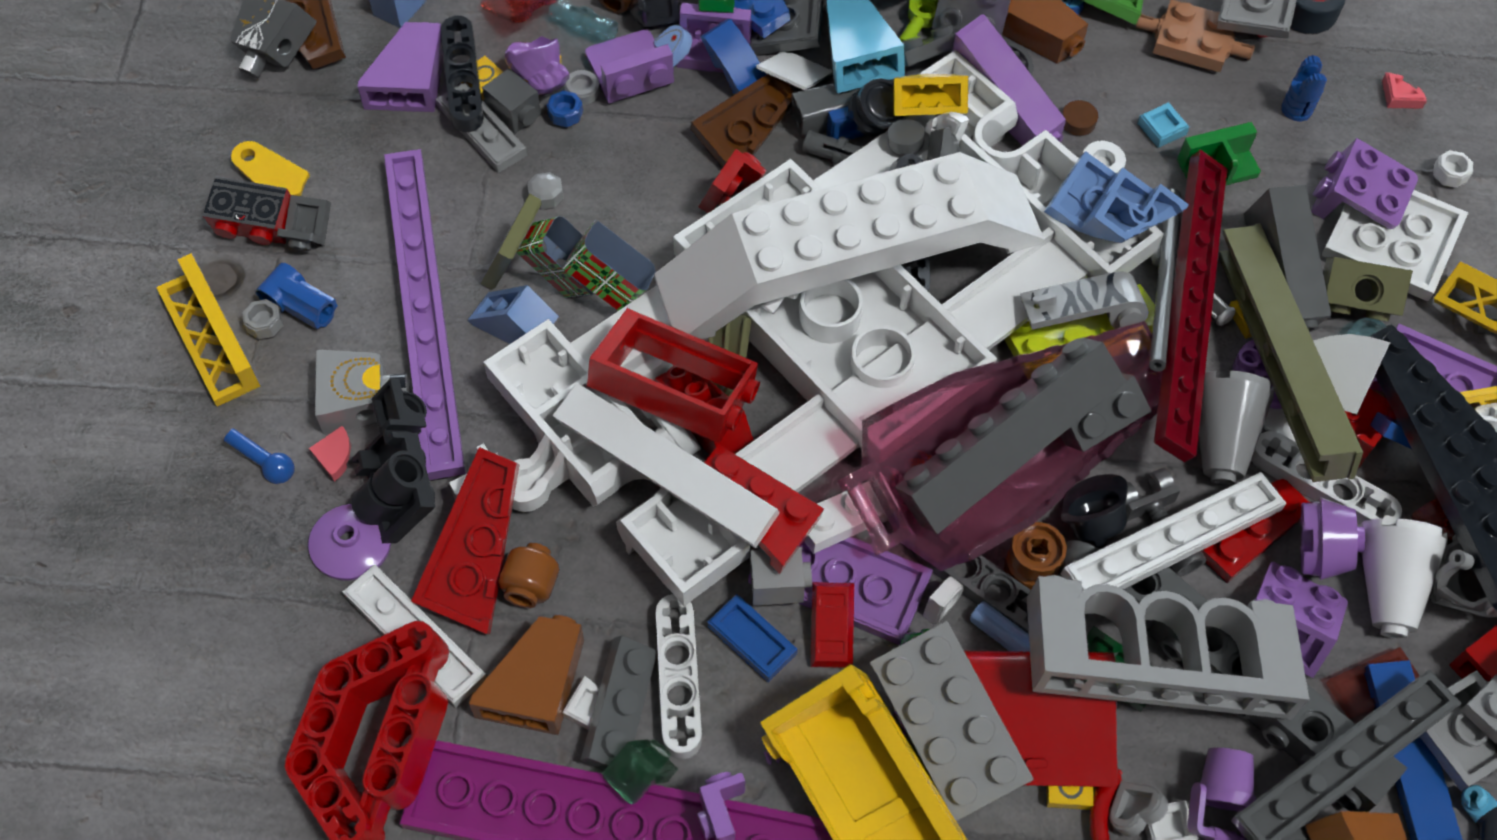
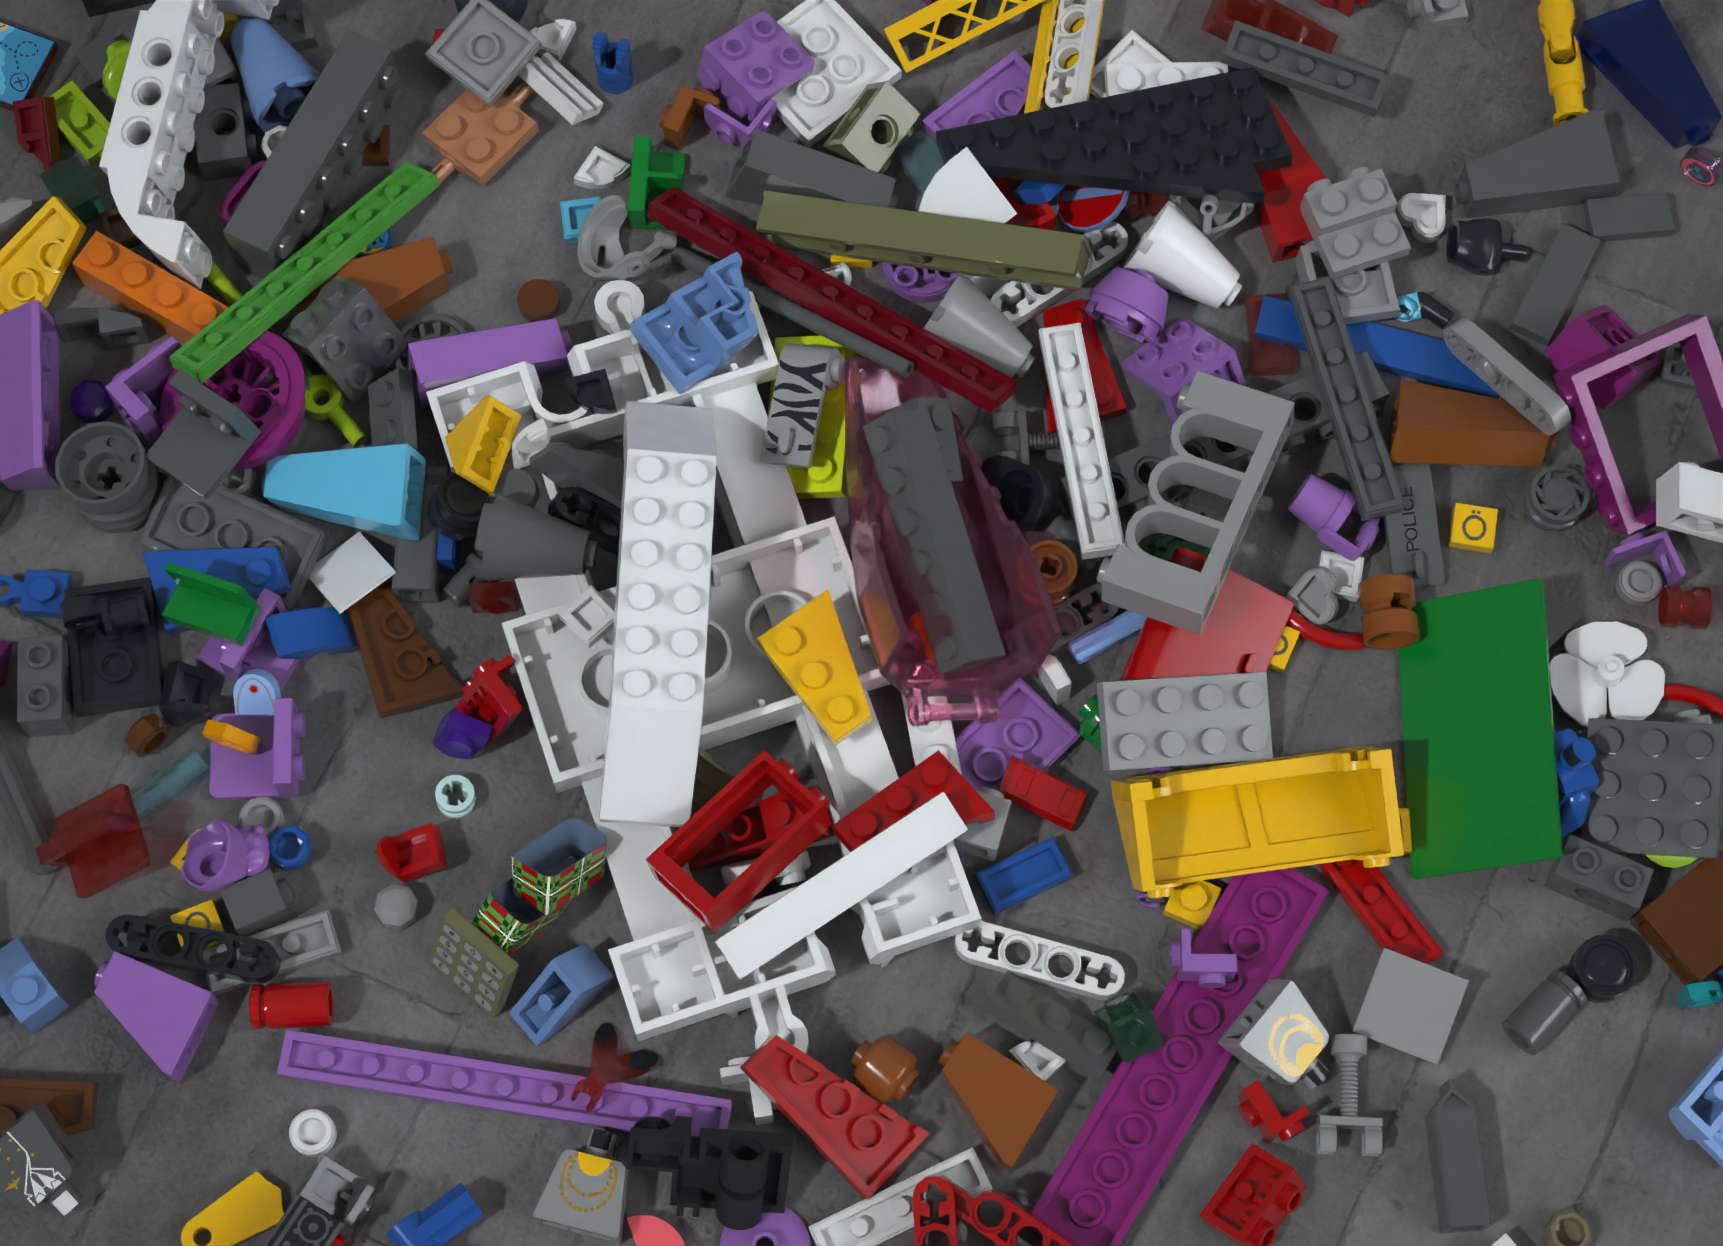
camera: 70 degrees left, 10 degrees up
(350, 198) = (312, 1133): none -> white tile
(441, 148) = (291, 1005): none -> red piece
(461, 369) = (608, 1068): none -> clear red piece
(587, 180) = (412, 853): none -> red plate
(631, 36) = (231, 736): none -> light orange tile
(649, 188) = (461, 809): none -> light aqua bush
(696, 176) = (461, 735): none -> dark purple plate
(784, 791) = (1192, 903): none -> yellow plate
(816, 159) = (492, 597): none -> clear red tile
(853, 387) = (818, 667): none -> yellow wing
(858, 136) = (529, 543): none -> dark grey cone
(1013, 151) = (592, 392): none -> black tile
(1148, 137) = (602, 230): none -> light grey helmet
(1210, 118) = (601, 170): none -> white tile
(1266, 75) = (560, 89): none -> white tile
(1294, 155) = (678, 118): none -> dark orange bracket
(1296, 52) = (555, 37): none -> white tile
(1335, 206) = (734, 132): none -> medium lavender bracket
(1404, 480) = (1089, 207): none -> red piece

